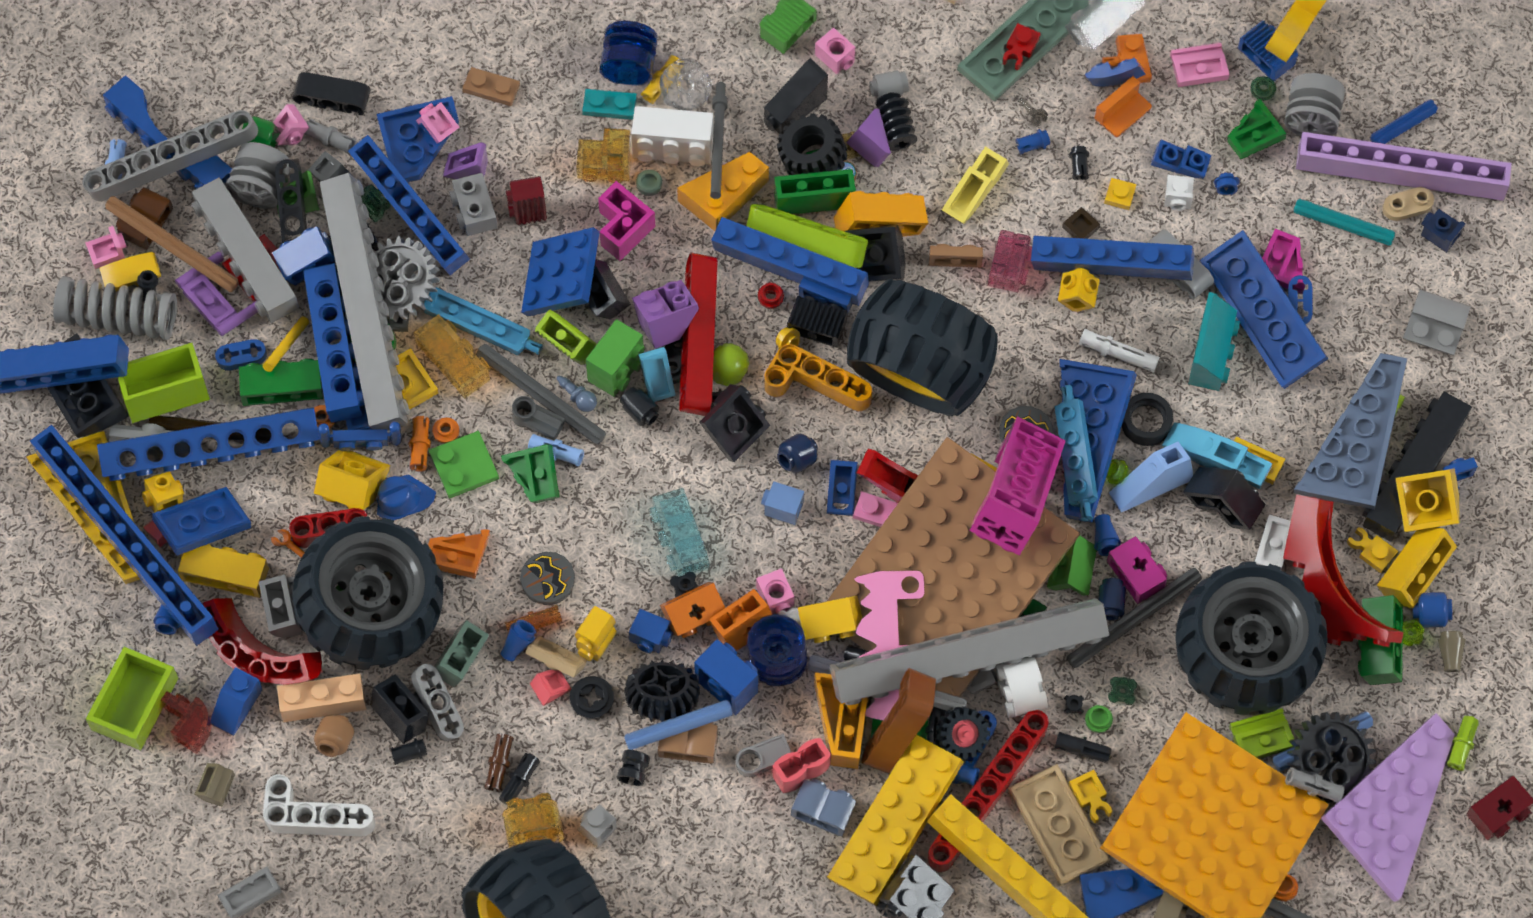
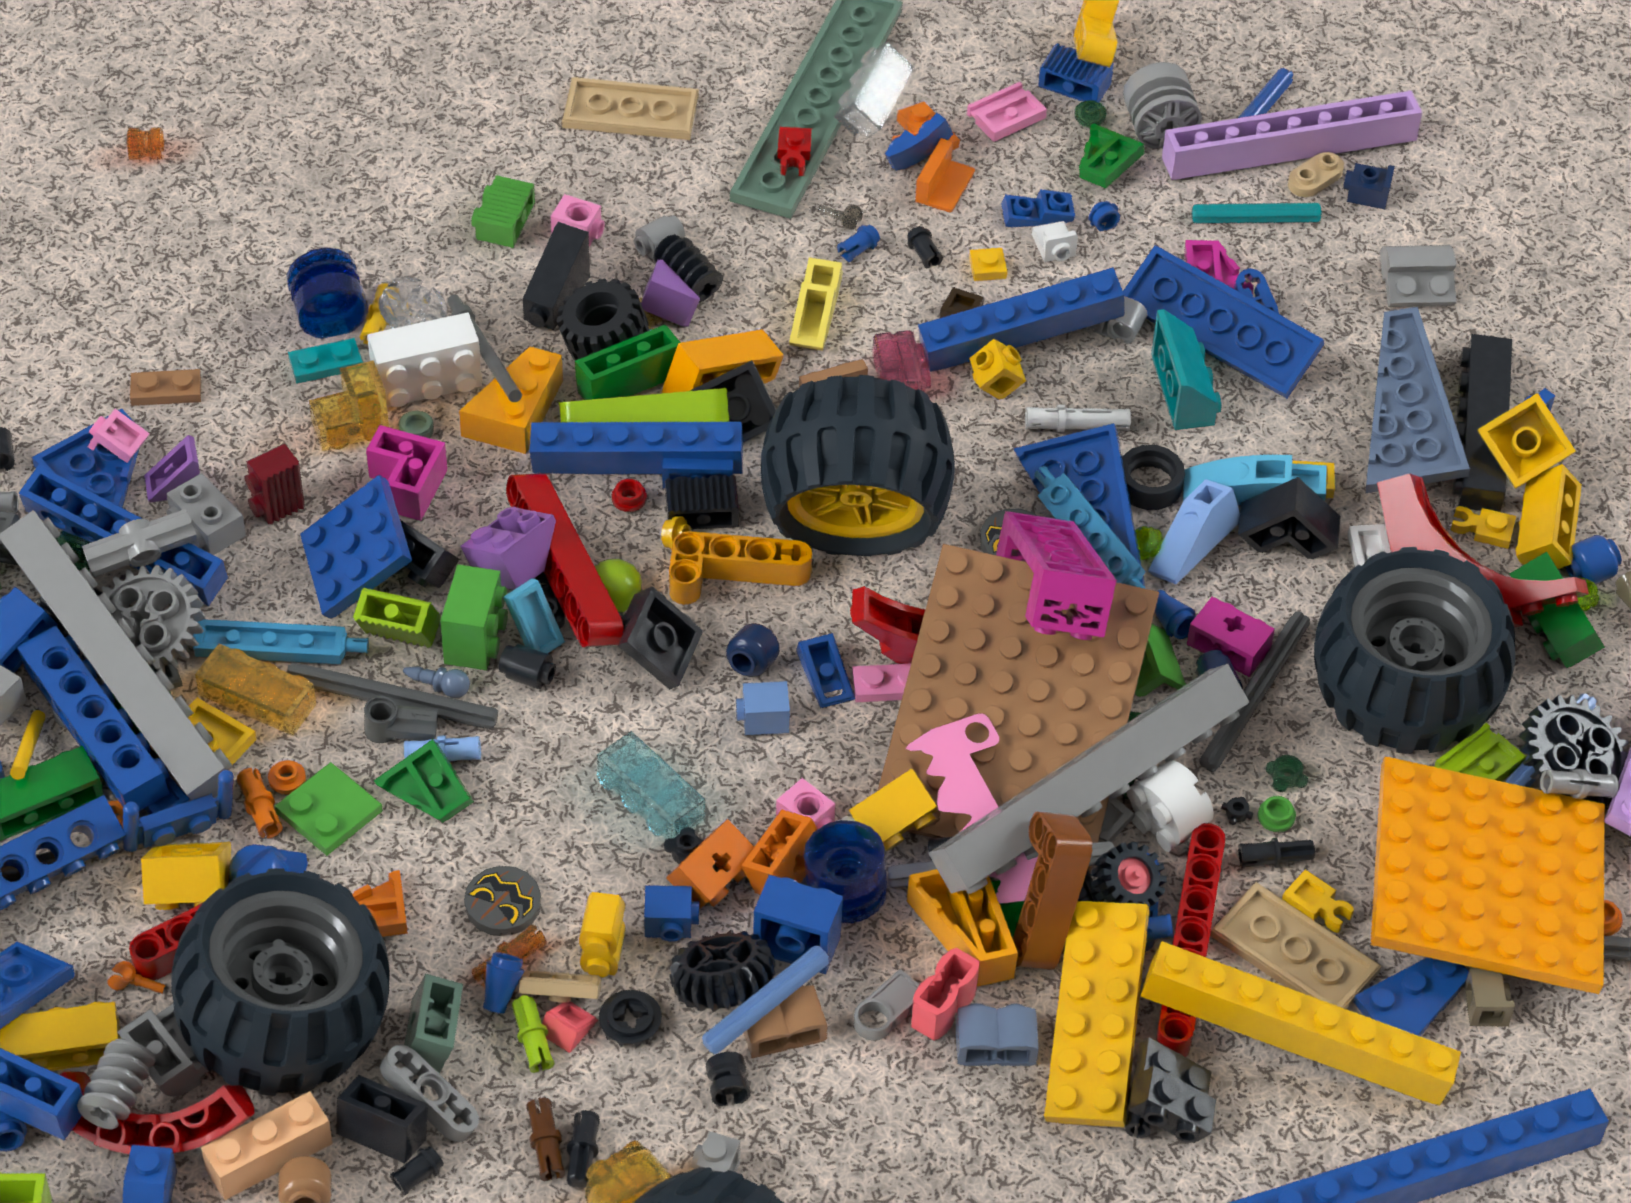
camera: 25 degrees left, 15 degrees down
(239, 621) = (116, 1083): none -> light grey piece
(412, 221) = (139, 542): none -> light grey piece
(523, 683) = (532, 1033): none -> lime axle

